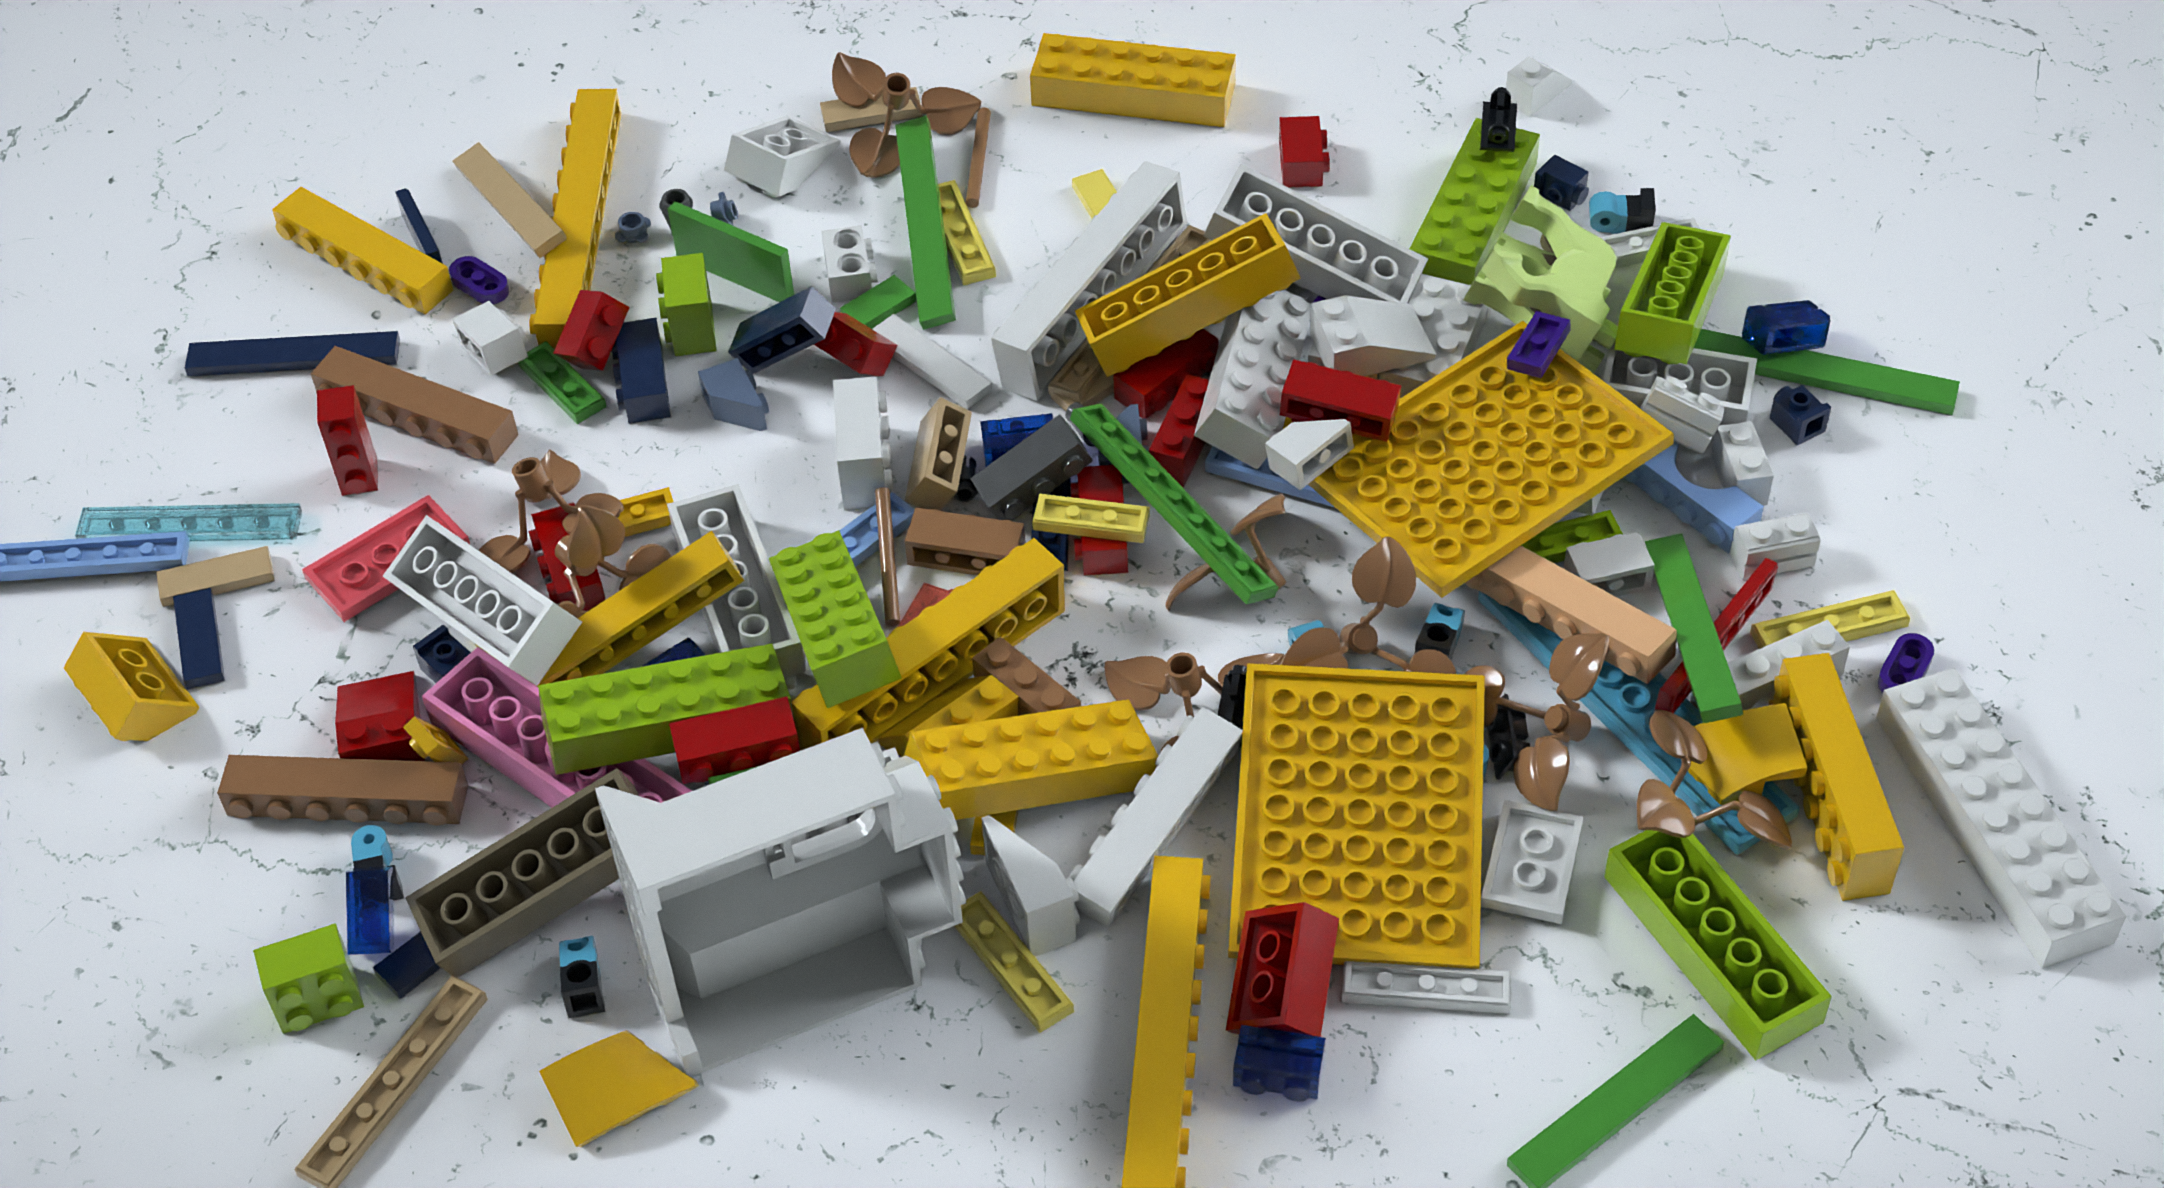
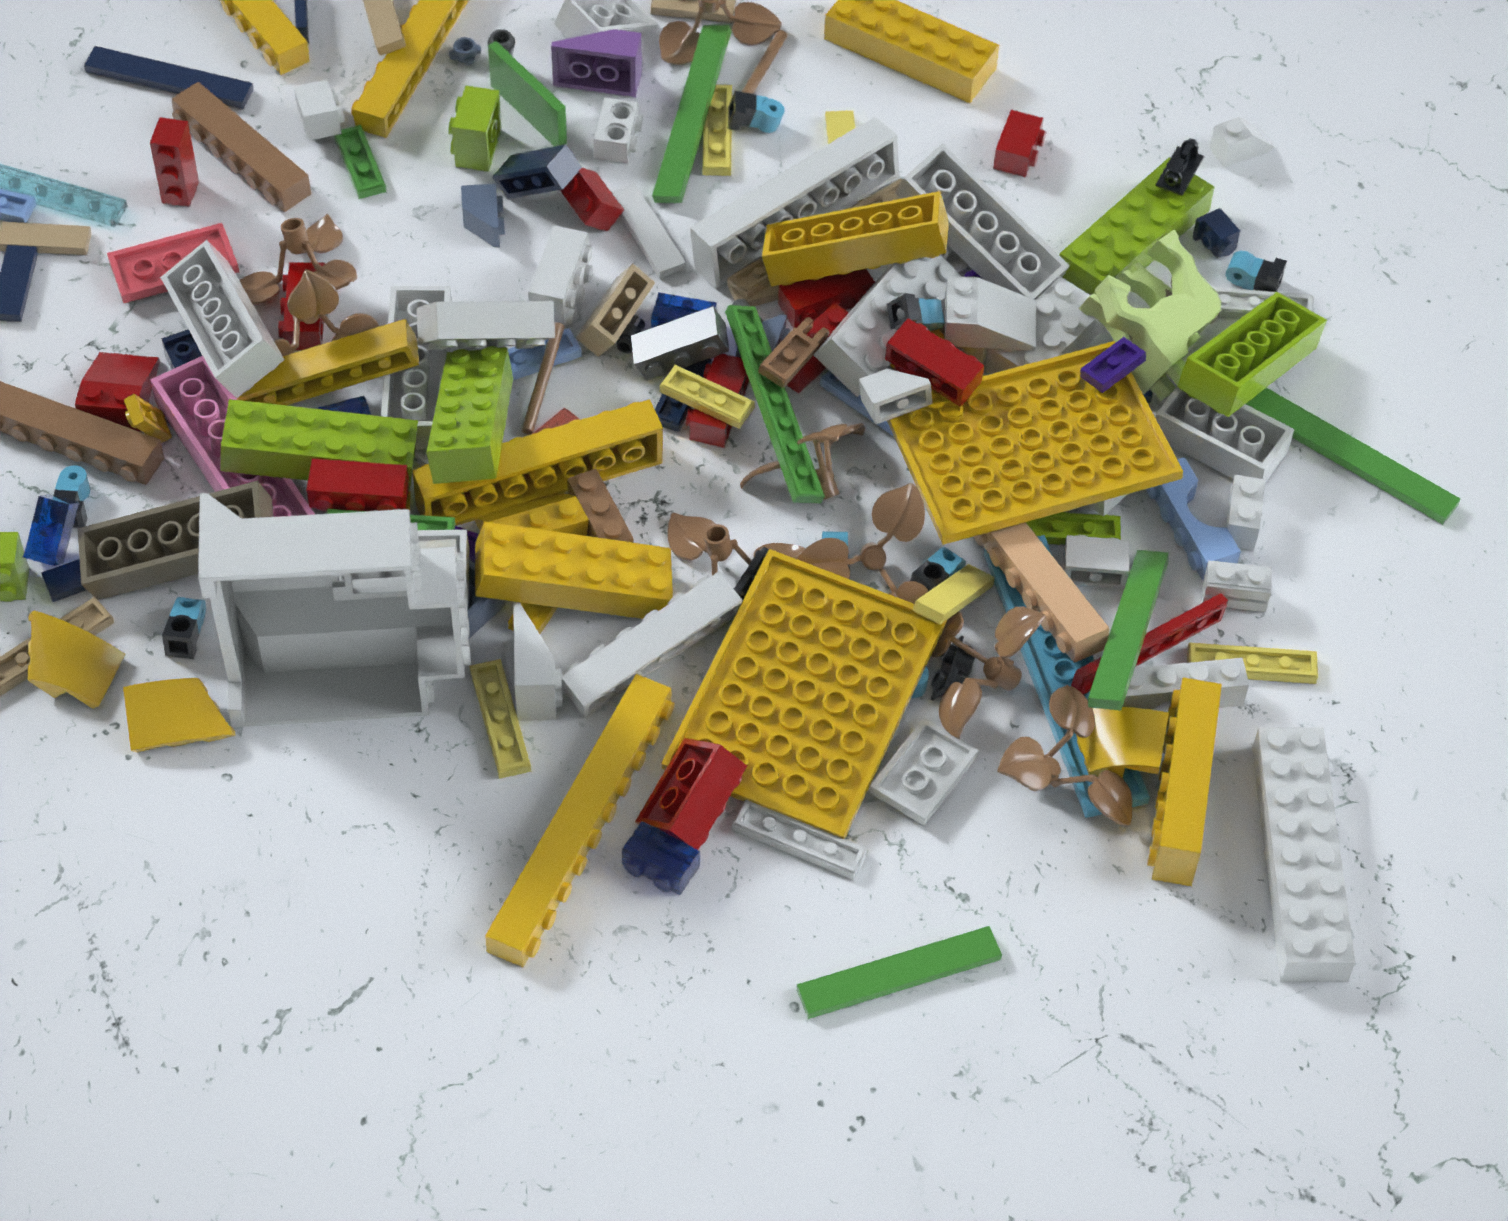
camera: 15 degrees right, 5 degrees up
(455, 1060) = (70, 660): none -> yellow slope
(479, 280) = (330, 59): dark purple plate -> none
(591, 330) = (394, 127): red brick -> none
(641, 371) = (421, 171): dark blue brick -> none
(646, 511) = (372, 286): yellow plate -> none
(724, 209) = (539, 58): sand blue plate -> none
(797, 195) = (599, 62): none -> medium lavender slope
(805, 510) = (485, 324): none -> white brick
(880, 302) = (628, 170): bright green tile -> none
(959, 541) = (602, 382): medium nougat brick -> none
(995, 200) = (755, 112): none -> leg
(1171, 441) = (792, 353): none -> medium nougat hinge
(1287, 348) = (921, 311): none -> leg
(1476, 650) = (953, 594): none -> light yellow tile
(1684, 413) = (1208, 456): white brick -> none
(1718, 939) = (1032, 876): lime brick -> none
(1786, 327) = (1336, 410): clear blue brick -> none
(1799, 414) = (1313, 479): dark blue brick -> none
(1900, 665) = (1289, 712): dark purple plate -> none

